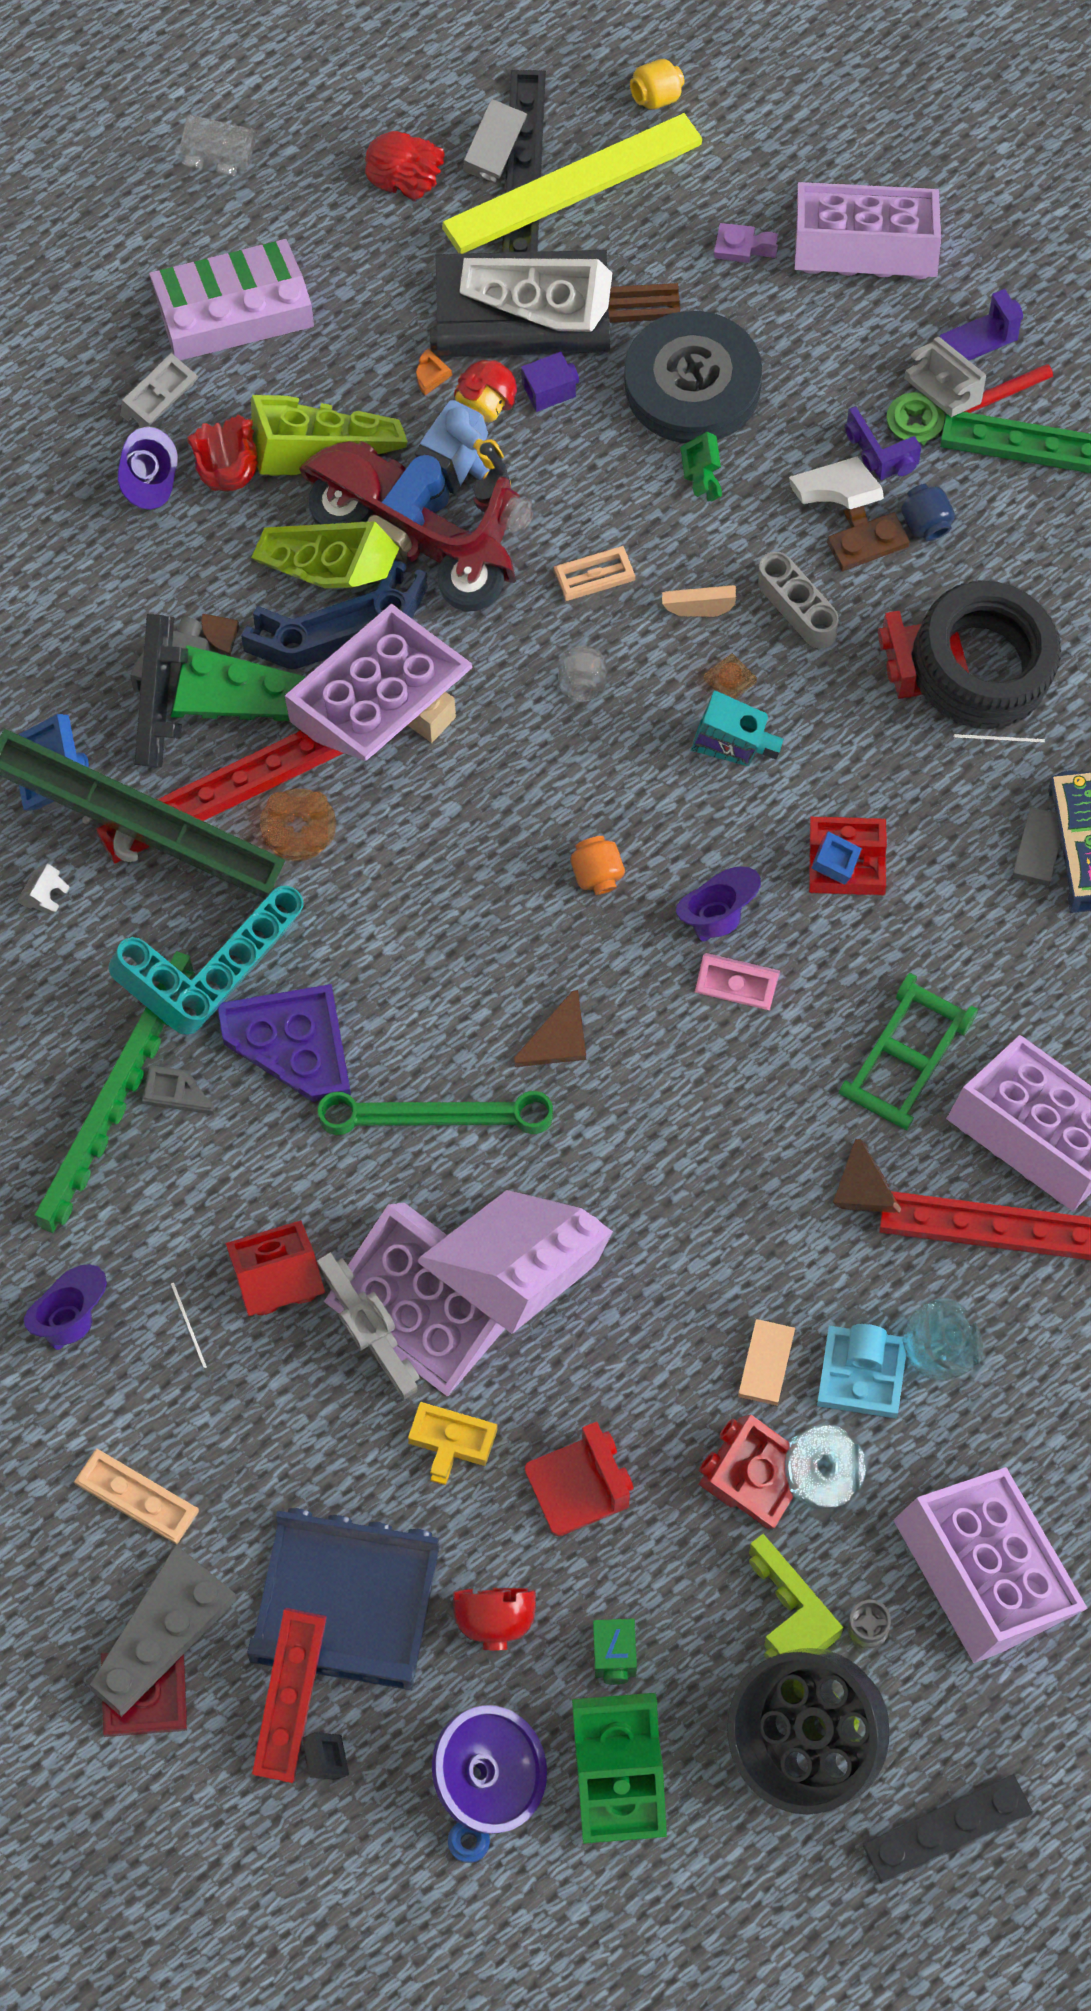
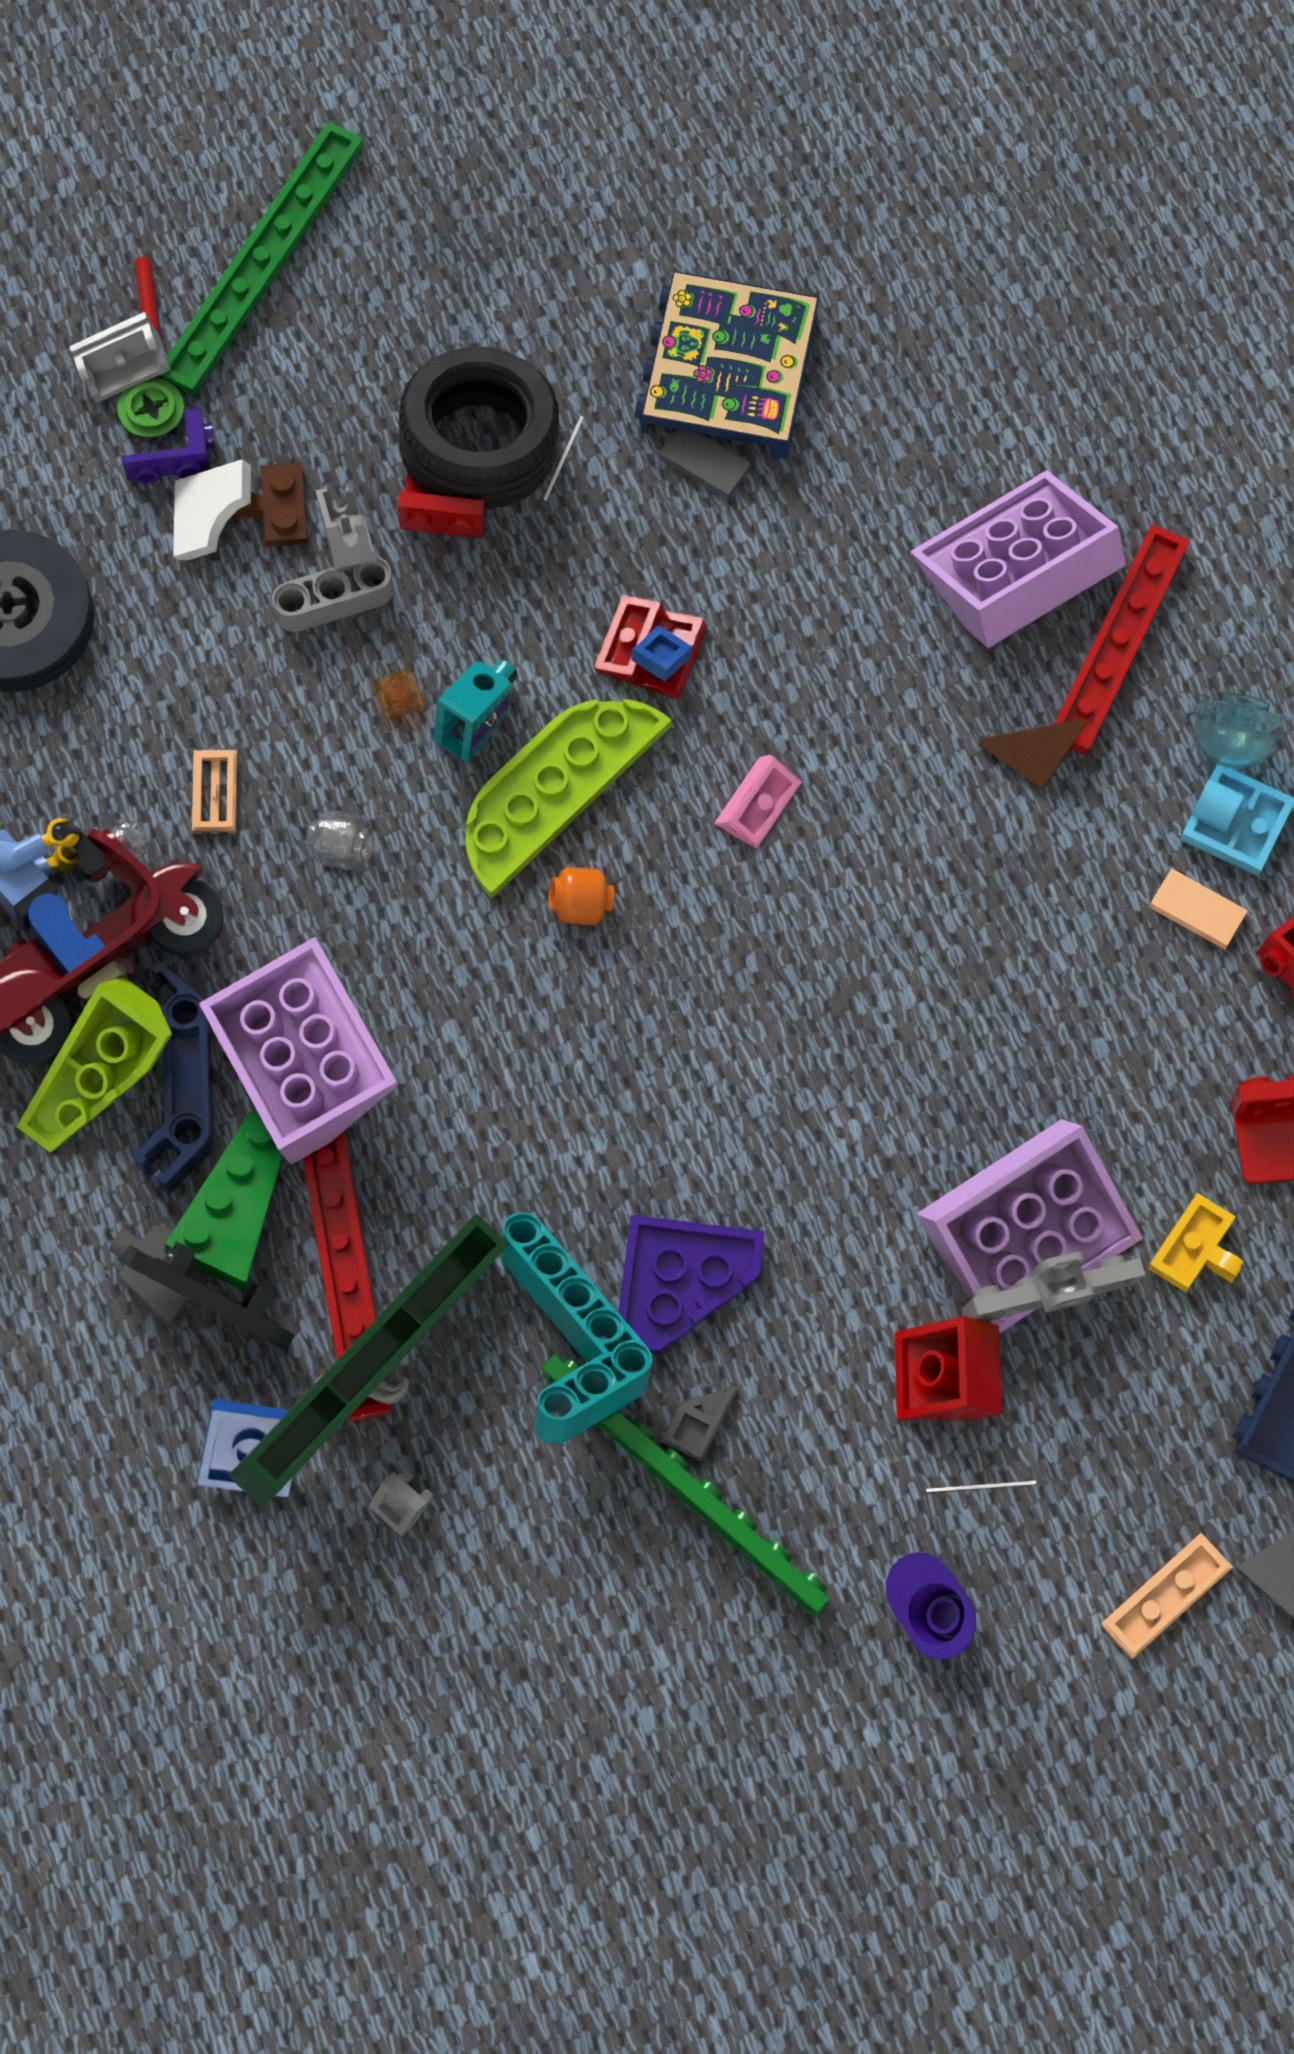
camera: 75 degrees left, 5 degrees up
(220, 633) = (138, 1213): reddish brown tile -> none
(282, 809) = (426, 1218): clear orange plate -> none
(435, 1113) = (816, 1152): green piece -> none
(517, 1255) = (1029, 1107): lavender slope -> none
(558, 1038) = (766, 998): reddish brown tile -> none
(690, 816) = (554, 784): none -> lime plate
(699, 462) = (120, 638): green plate -> none
(700, 601) = (299, 688): light nougat tile -> none
(717, 904) = (671, 780): dark purple piece -> none
(854, 584) = (345, 530): none -> light grey hinge
(906, 995) = (883, 599): green piece -> none
(928, 512) = (276, 431): dark blue head -> none
(990, 331) = (72, 299): dark purple bracket -> none

